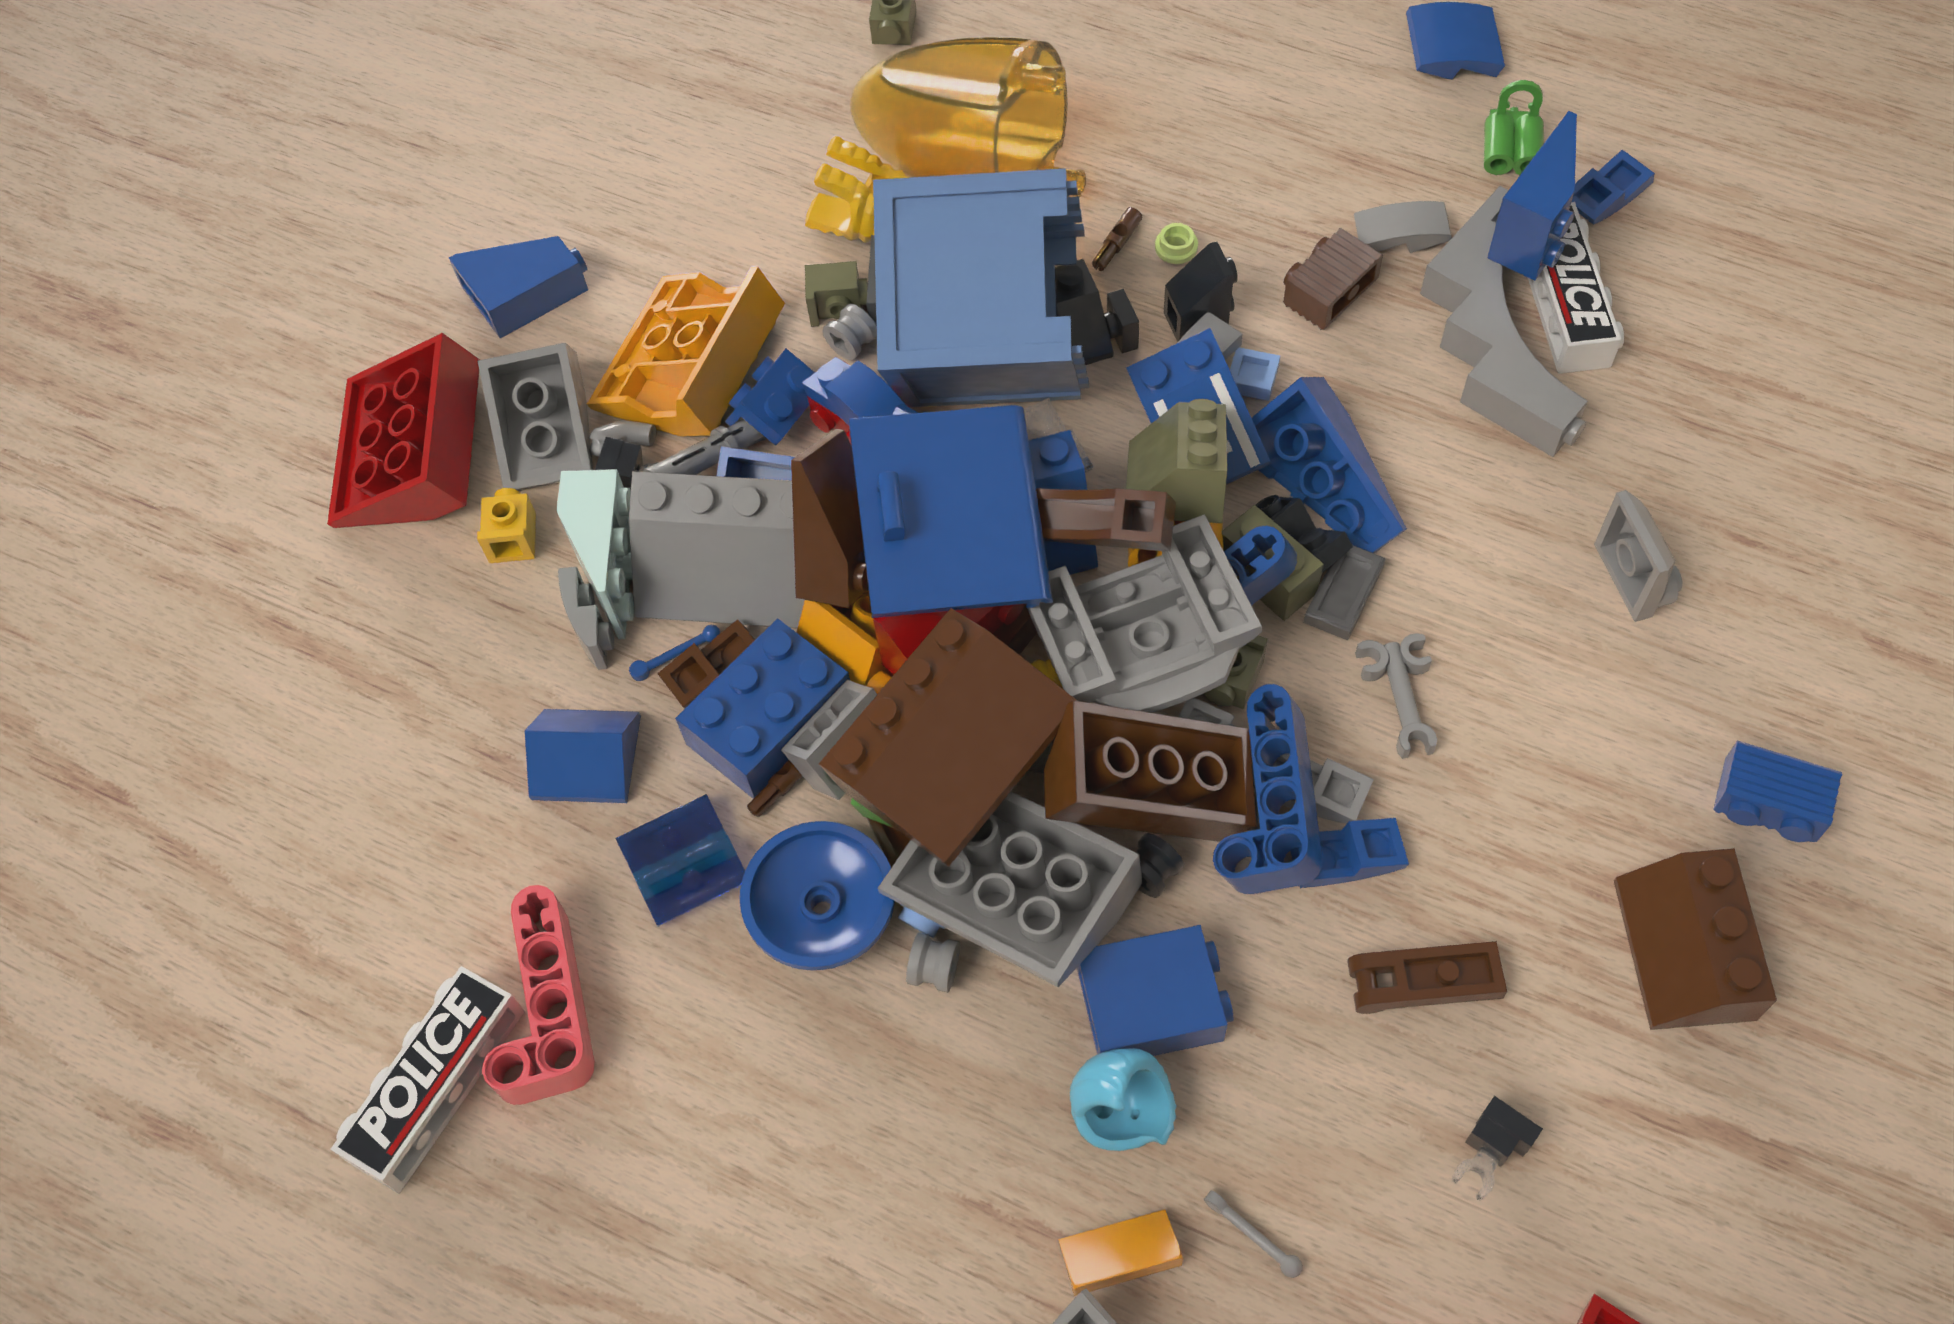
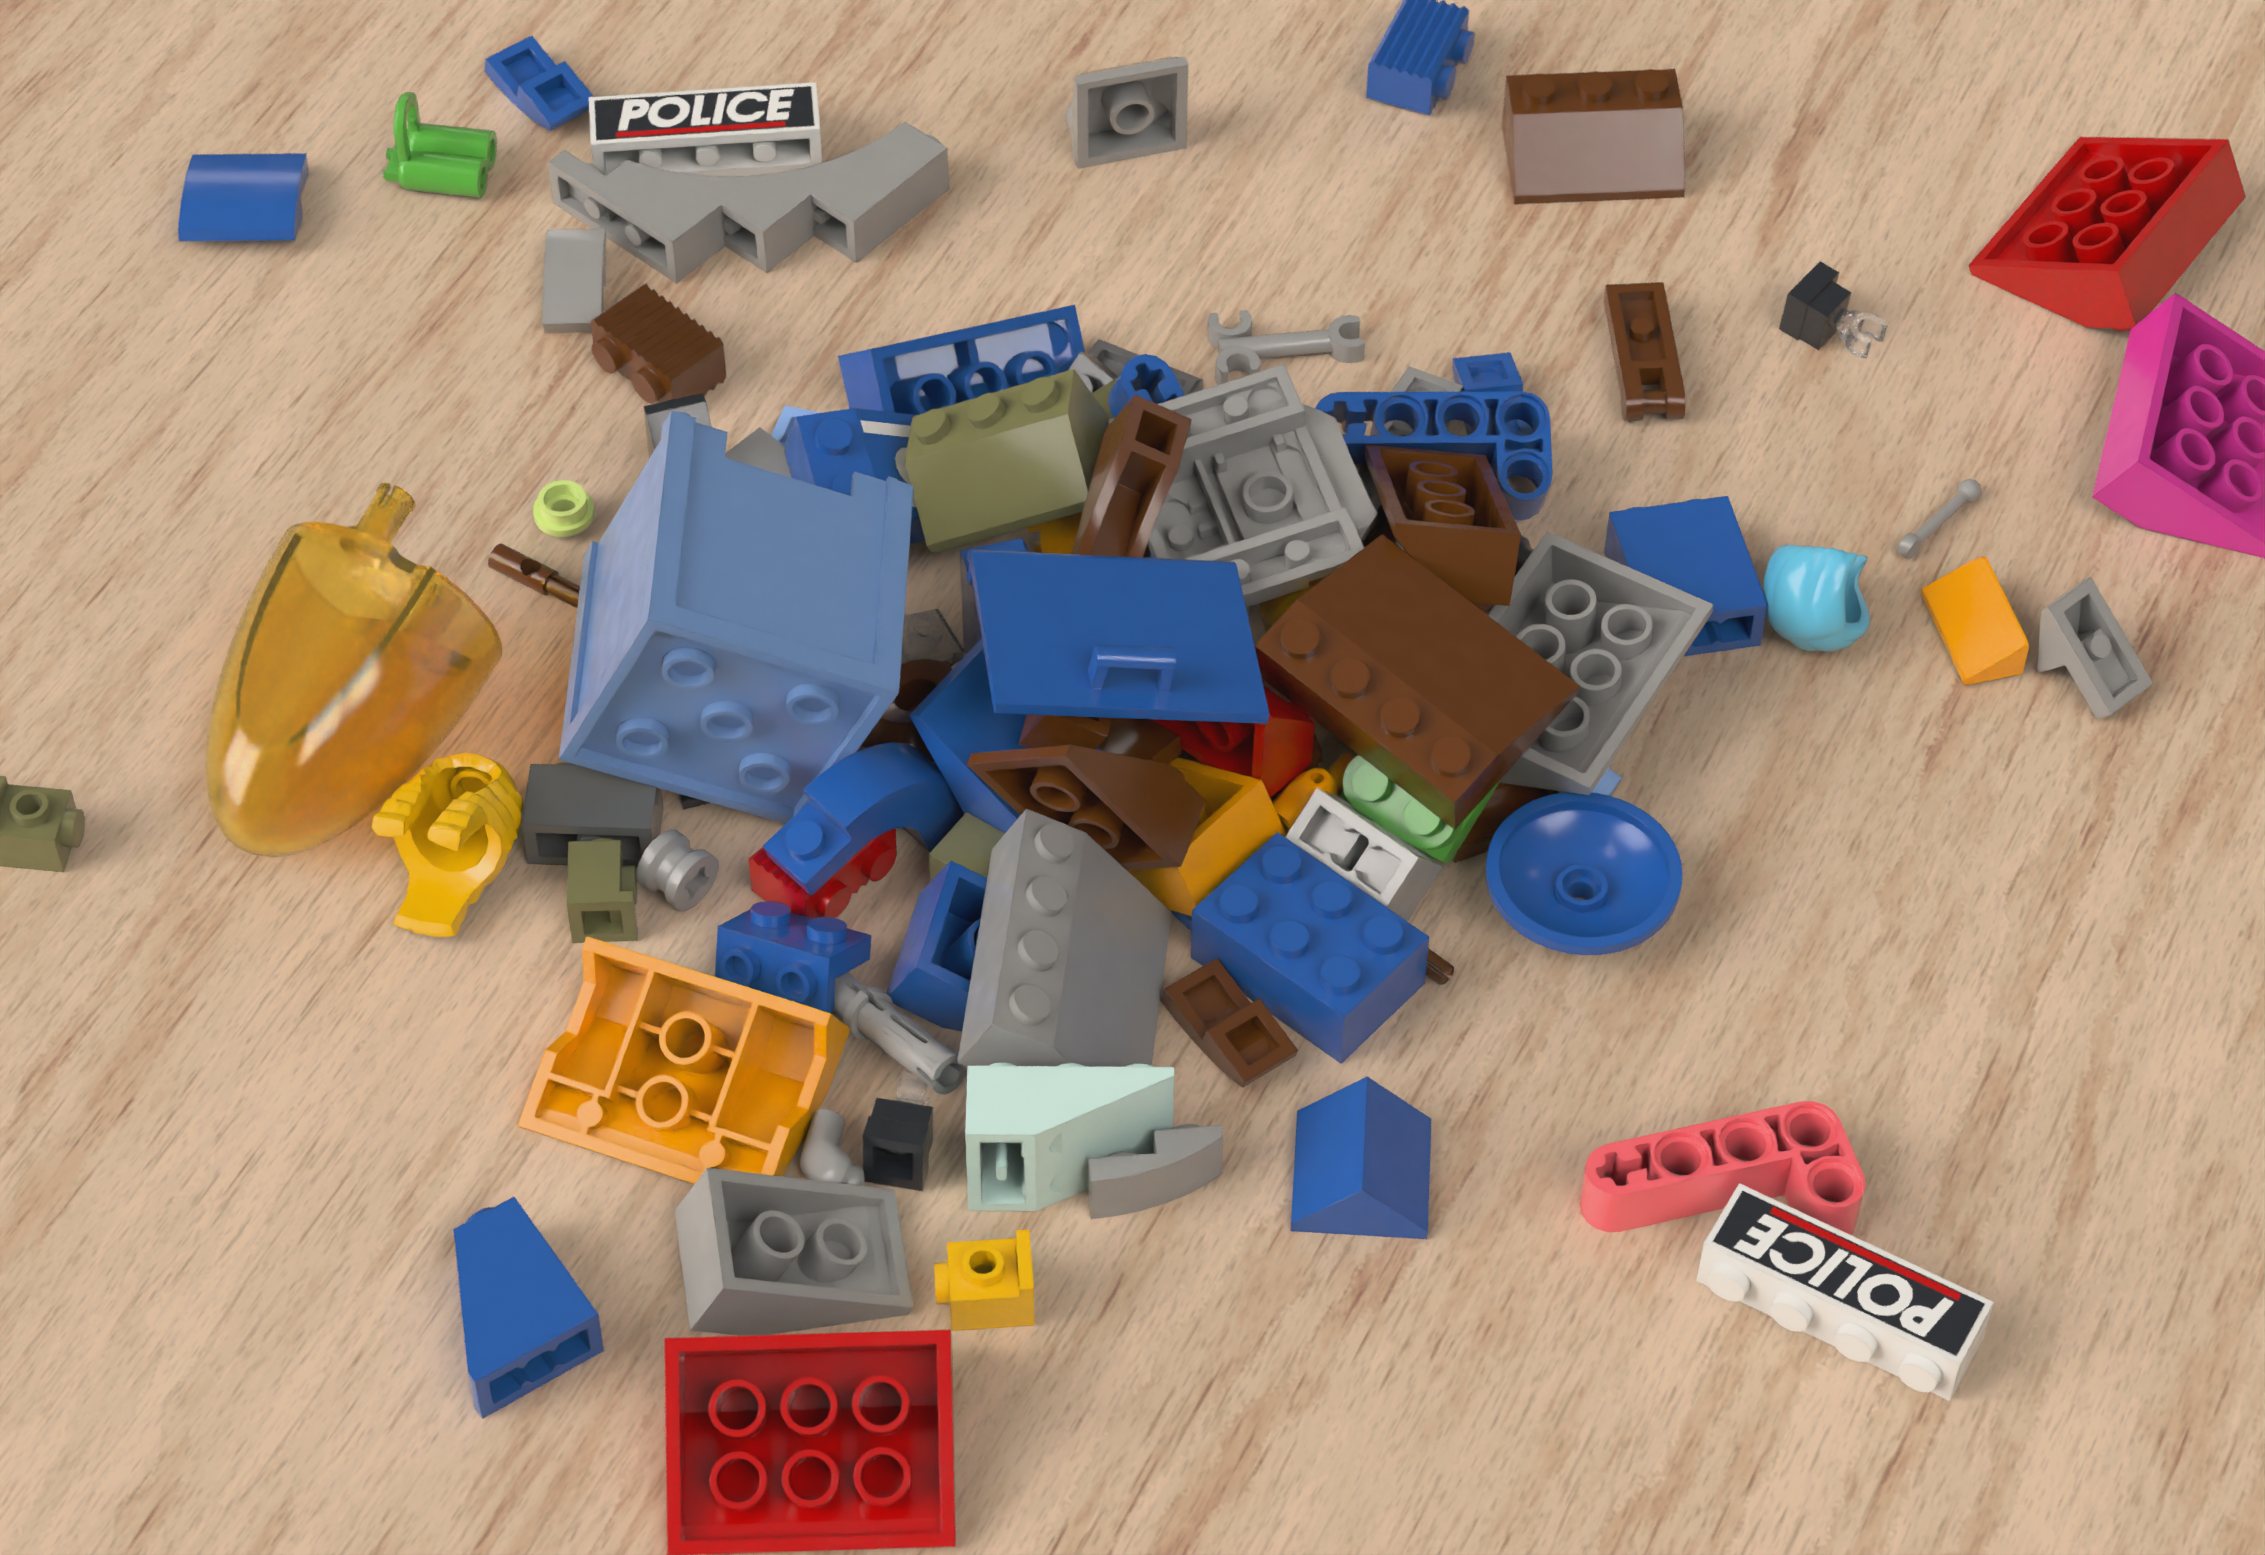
camera: 95 degrees left, 10 degrees down
(640, 670) = (1227, 1115): blue hinge -> none
(682, 860) = (1520, 1048): clear blue slope -> none
(933, 962) = (1655, 775): light grey wheel -> none
(1538, 205) = (624, 94): blue slope -> none

